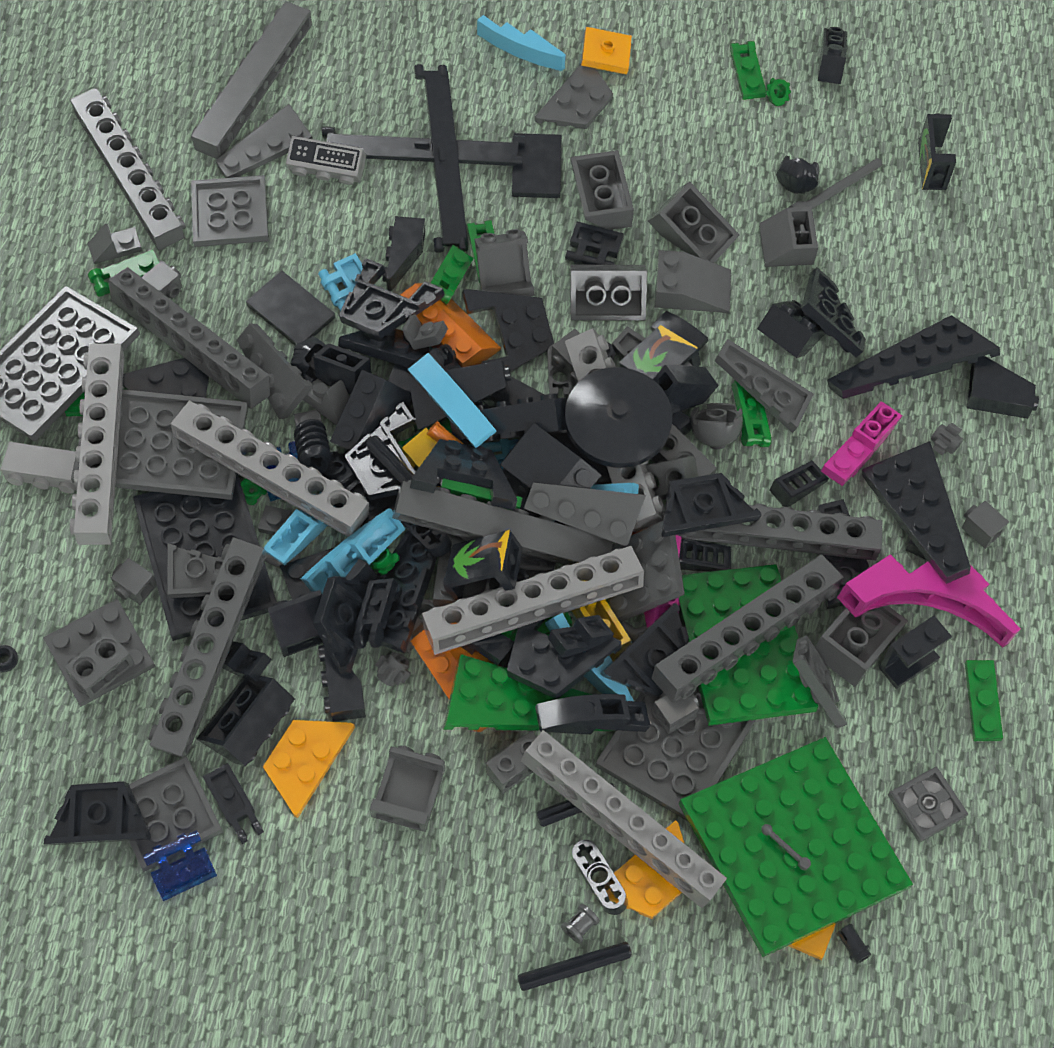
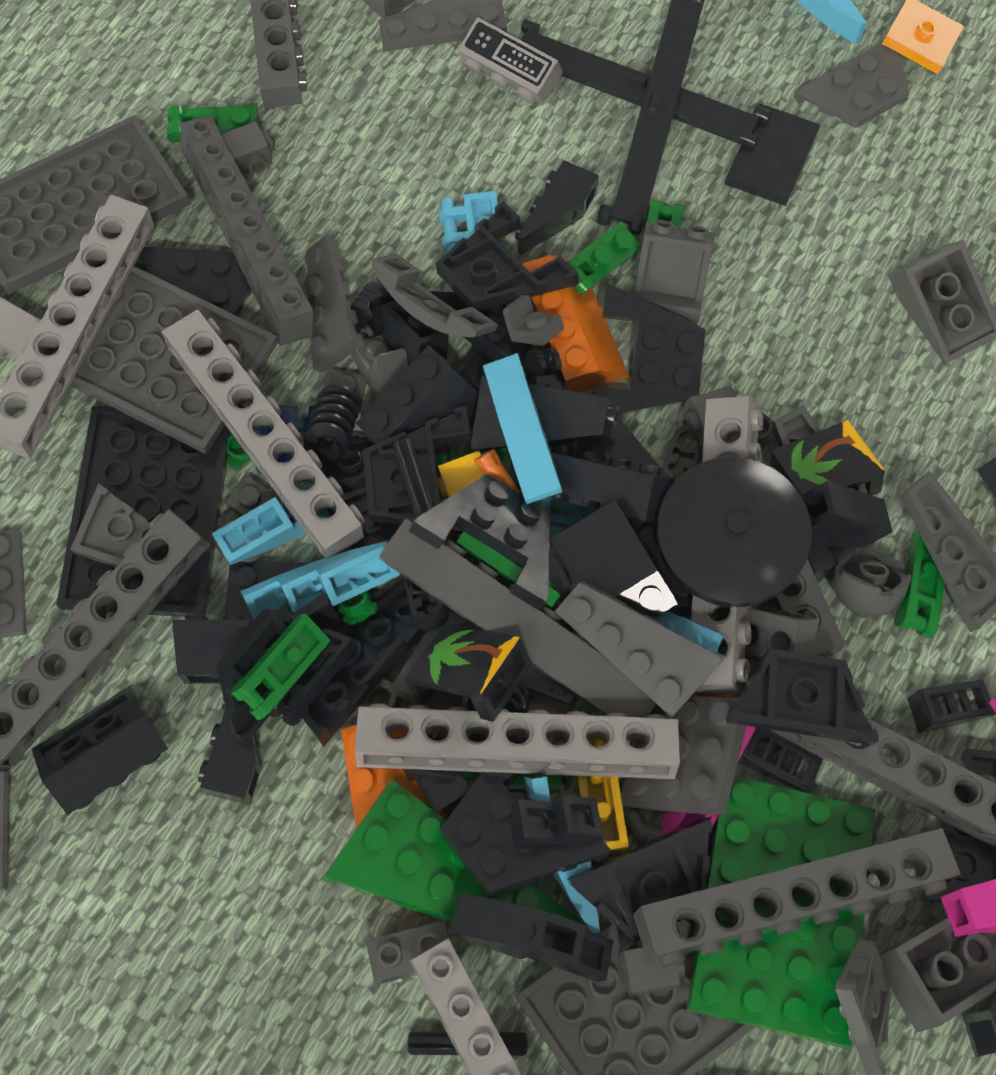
camera: 25 degrees right, 5 degrees up
(108, 245) = (210, 84): dark grey slope -> none
(133, 581) = (43, 514): dark grey brick -> none
(229, 211) = (367, 87): dark grey plate -> none
(232, 800) = (34, 853): black hinge -> none
(245, 662) = (130, 673): black slope -> none
(290, 308) = (387, 225): black tile -> none
(304, 759) = (147, 833): light orange wing -> none
(320, 334) = (401, 282): none -> dark grey slope
(355, 610) = (281, 666): none -> green plate
(393, 669) = (306, 757): dark grey gear -> none
(408, 788) = (258, 929): dark grey panel -> none
(595, 240) = (810, 277): black plate -> none
(603, 189) = (844, 213): dark grey slope -> none
(608, 292) = (797, 351): dark grey slope -> none
(681, 328) = (874, 435): black slope -> none
(691, 283) = (913, 377): dark grey slope -> none

